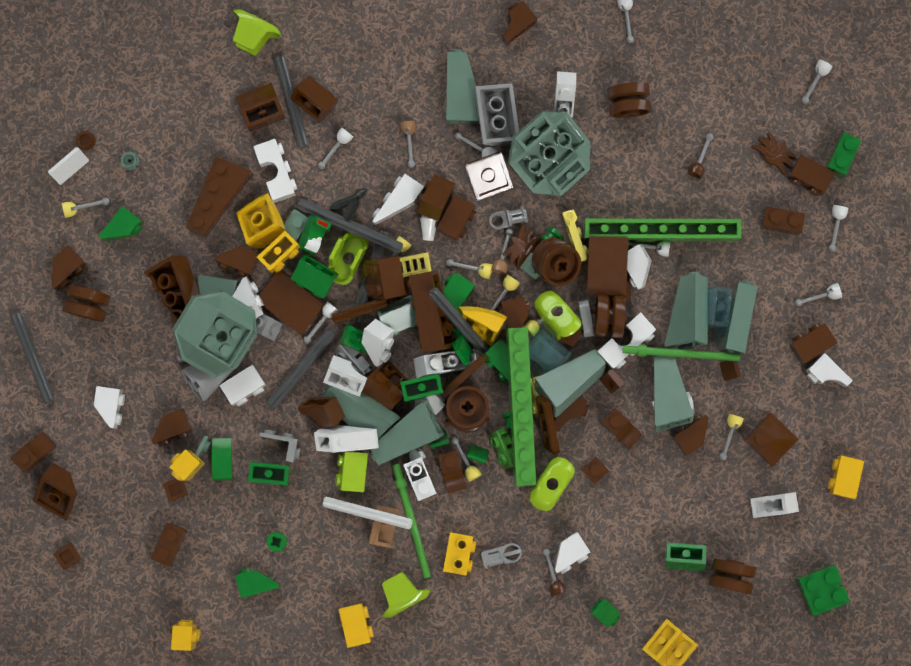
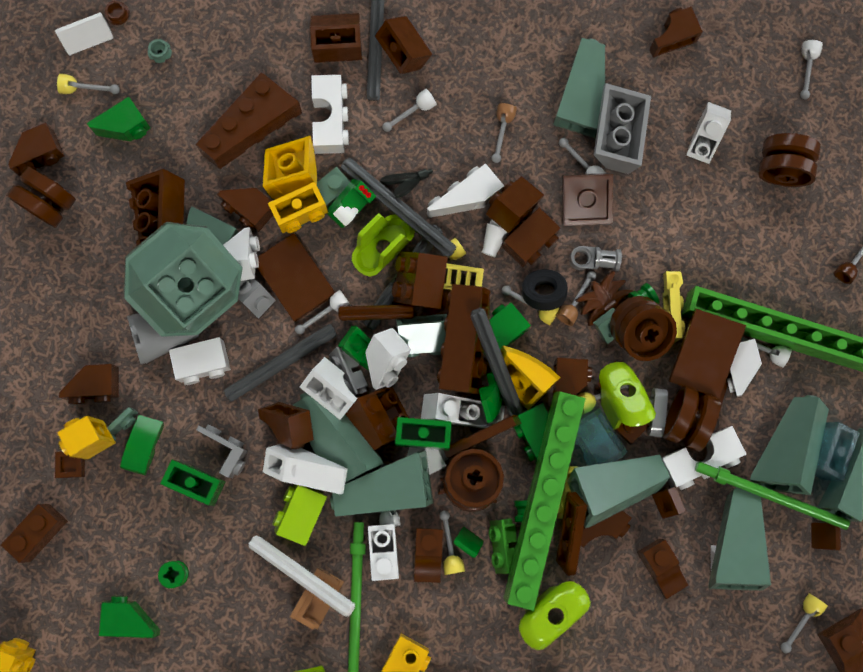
camera: 15 degrees right, 5 degrees down
(108, 404) = (24, 332): white slope -> none
(314, 276) = (333, 254): green brick -> none
(441, 441) = (429, 511): green slope -> none
(480, 264) = (544, 277): none -> black tyre
(509, 284) = (573, 339): light yellow hinge -> none
(563, 165) = (696, 196): sand green piece -> none
(595, 470) = (613, 612): reddish brown plate -> none
(692, 436) = (753, 609): reddish brown slope -> none

